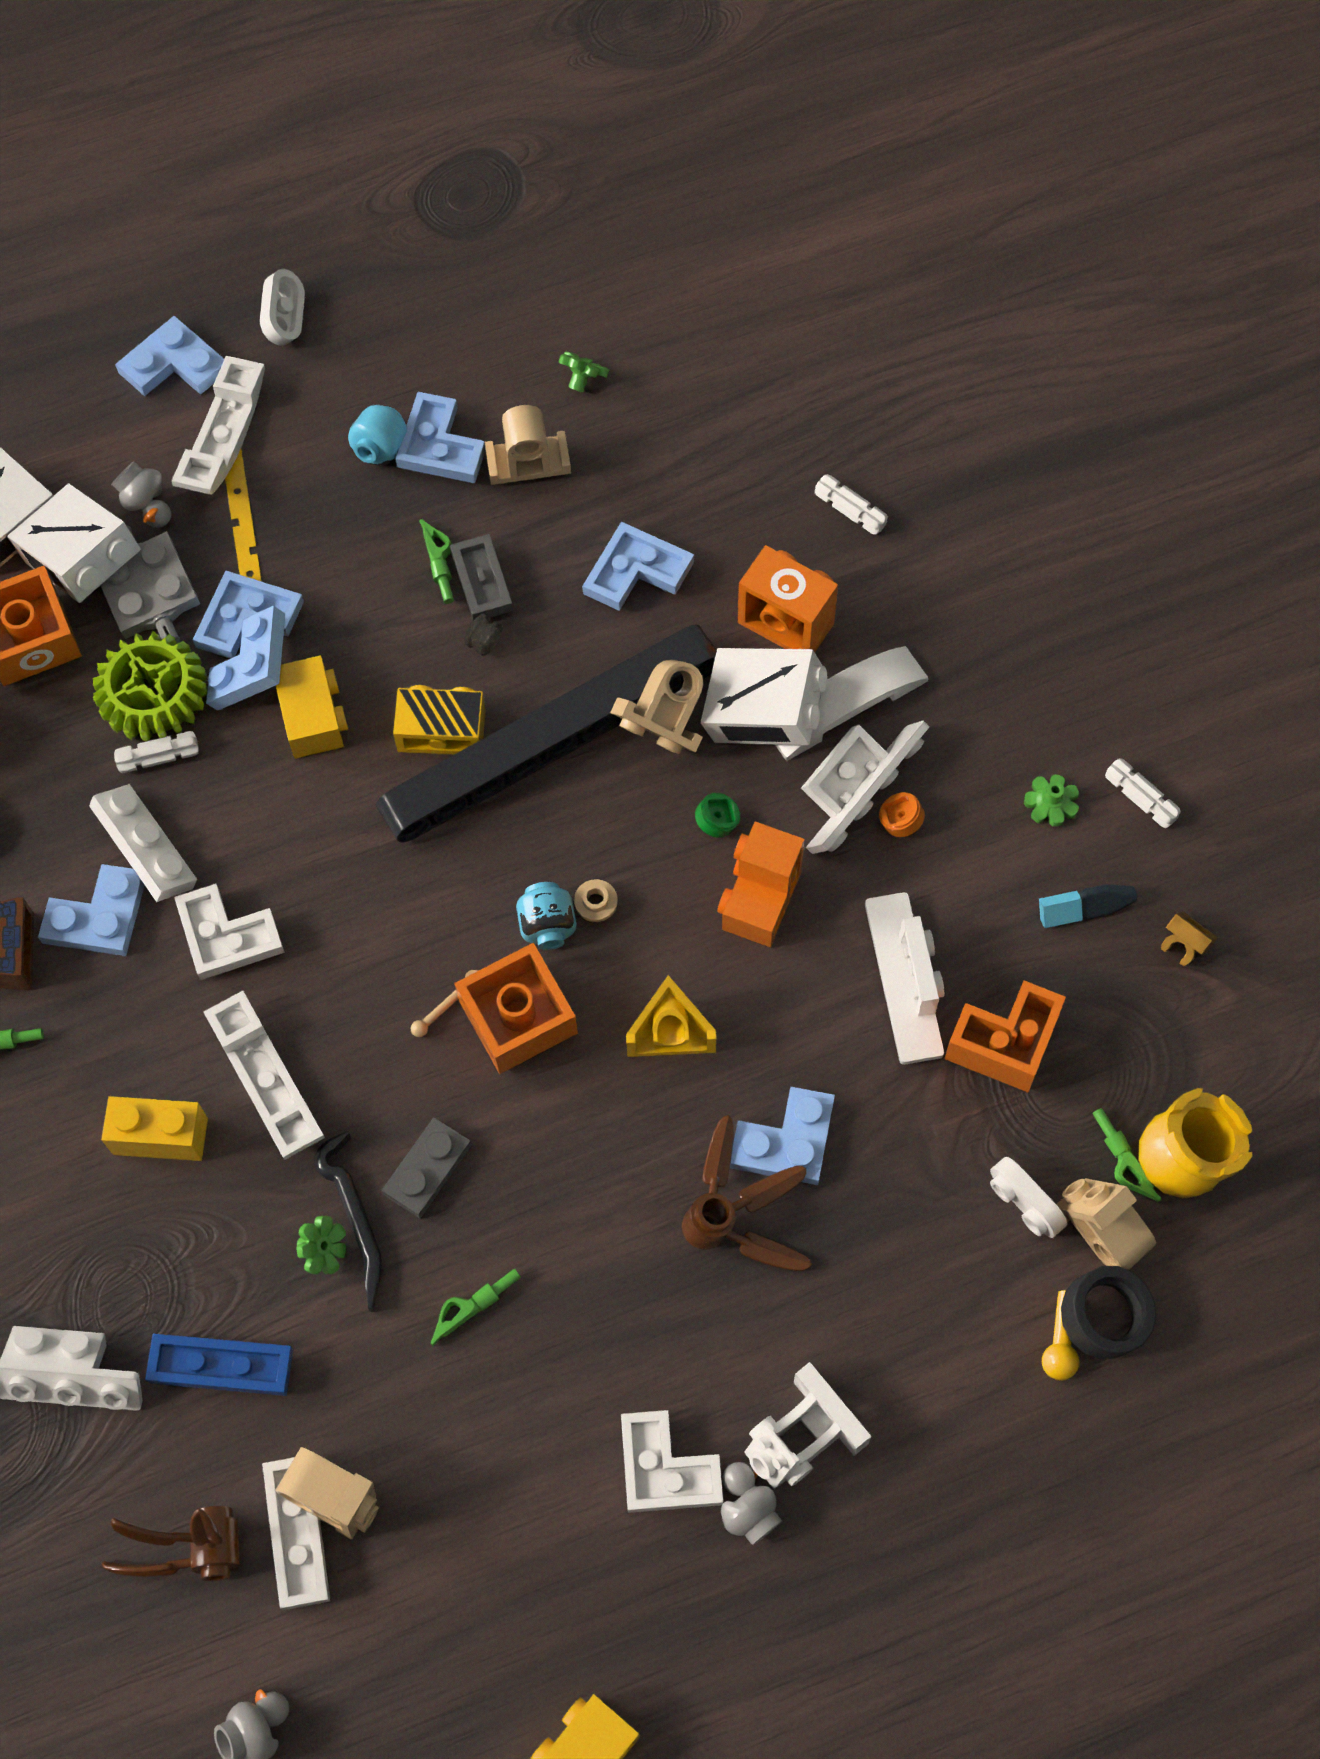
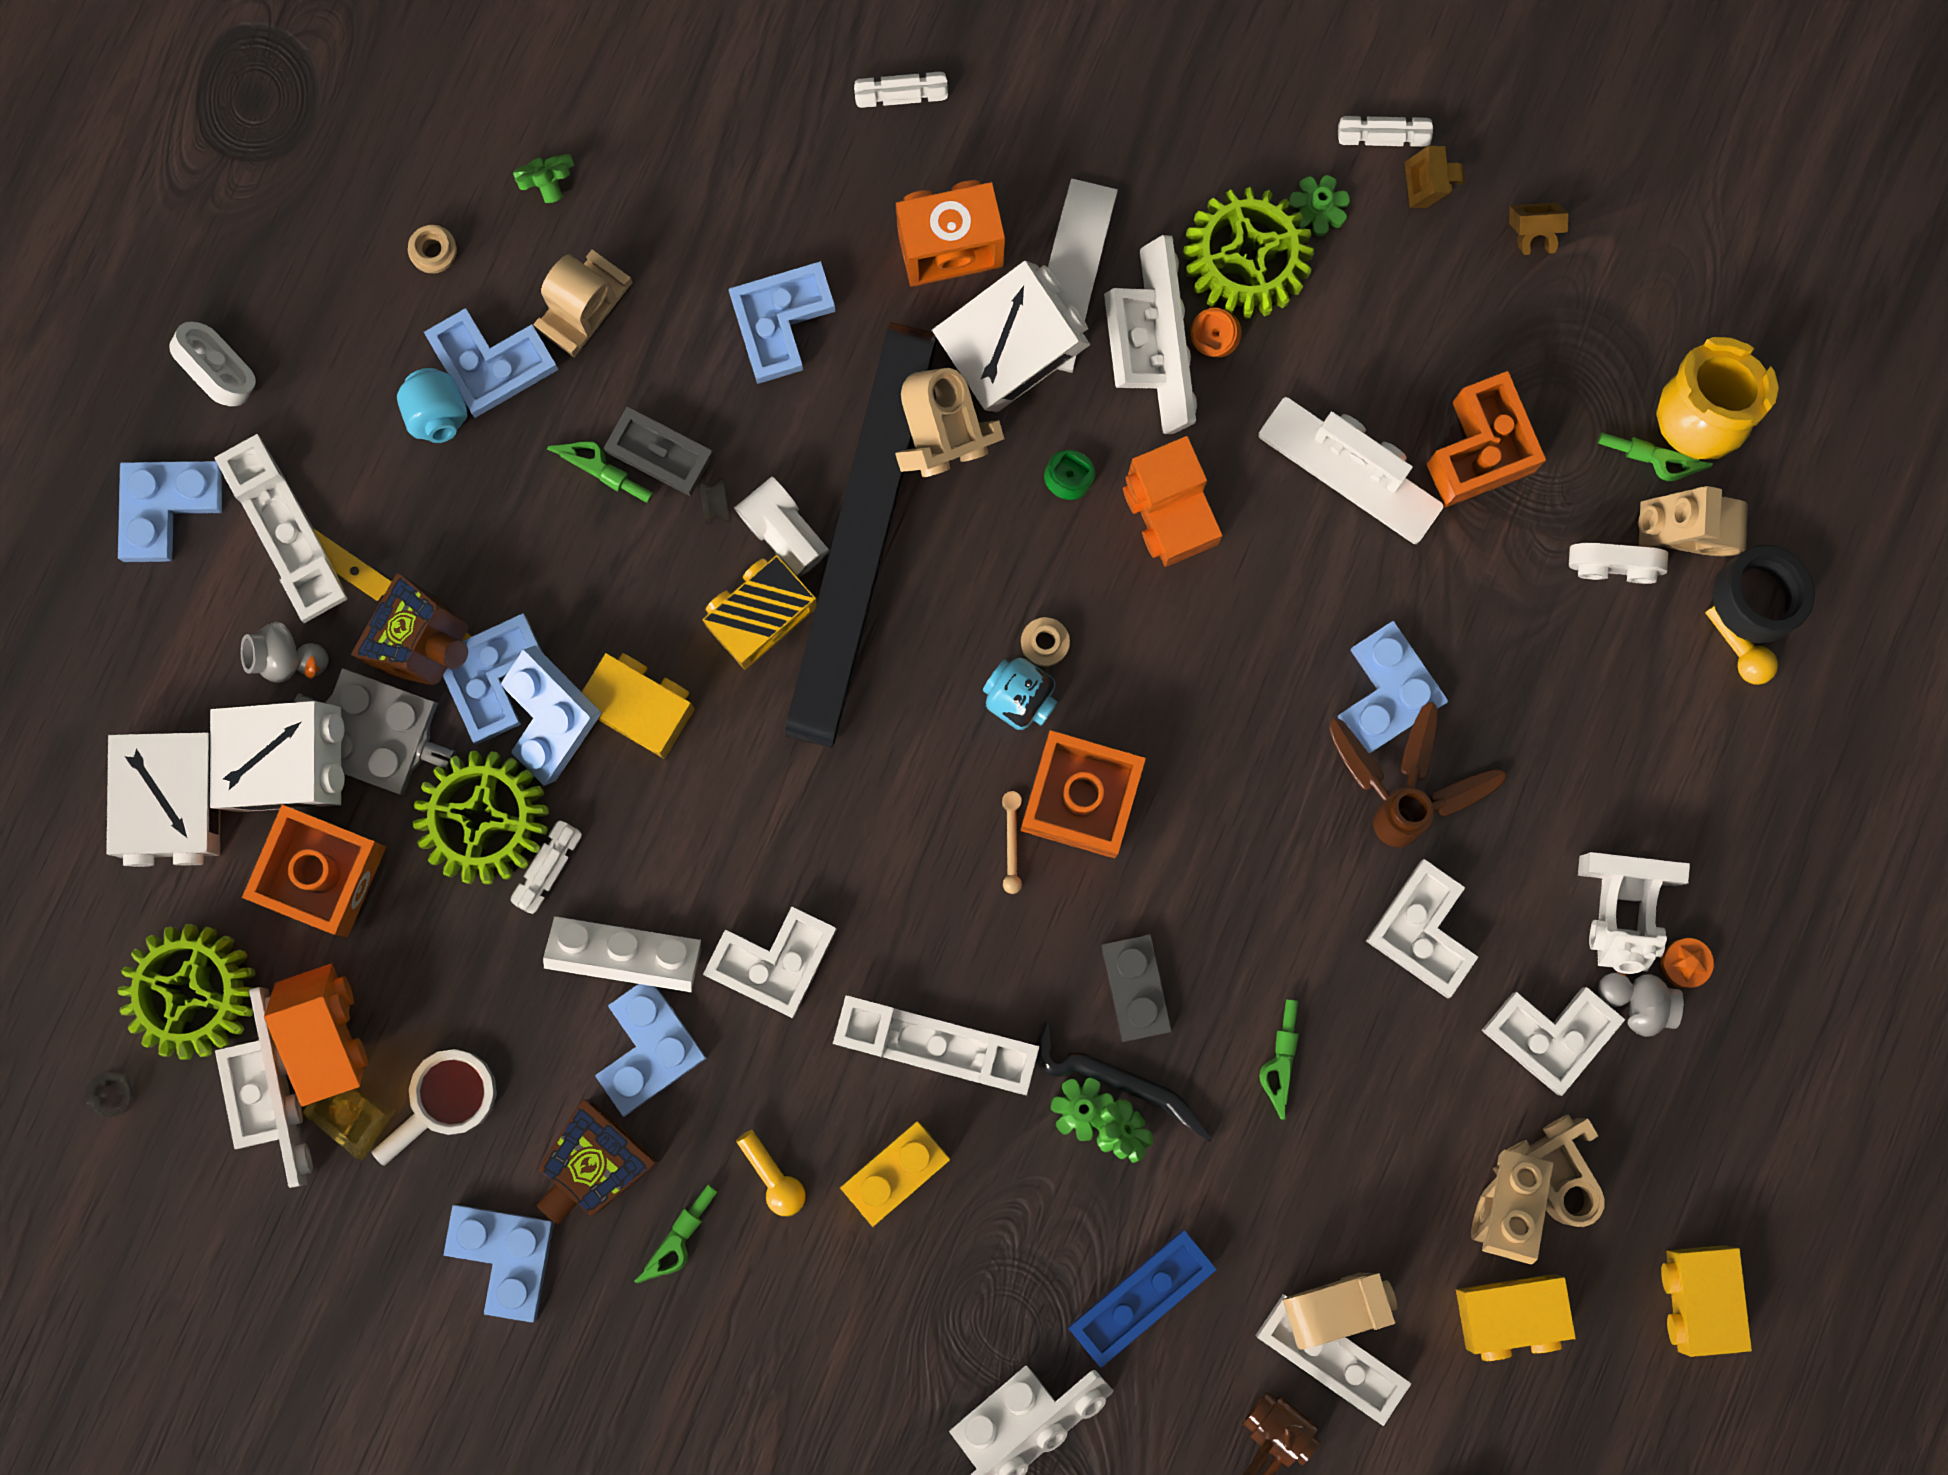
camera: 50 degrees left, 15 degrees up
(80, 1081) = (784, 1193): none -> yellow bar
(225, 545) = (412, 635): none -> reddish brown torso
(312, 1204) = (1070, 1104): none -> bright green plant
(444, 1627) = (1515, 1316): none -> yellow brick
(474, 345) = (432, 235): none -> tan plate
(507, 677) = (774, 517): none -> white piece
(512, 1543) = (1514, 1208): none -> tan pin
(573, 1555) = (1568, 1169): none -> tan pin
(639, 1304) = (1411, 932): none -> white plate
(670, 1026) = (1214, 688): yellow slope -> none
(807, 1512) = (1687, 963): none -> orange tile
(1001, 801) = (1283, 238): none -> lime gear
(1087, 904) = (1422, 284): piece -> none
(1145, 846) = (1431, 176): none -> pearl gold tile

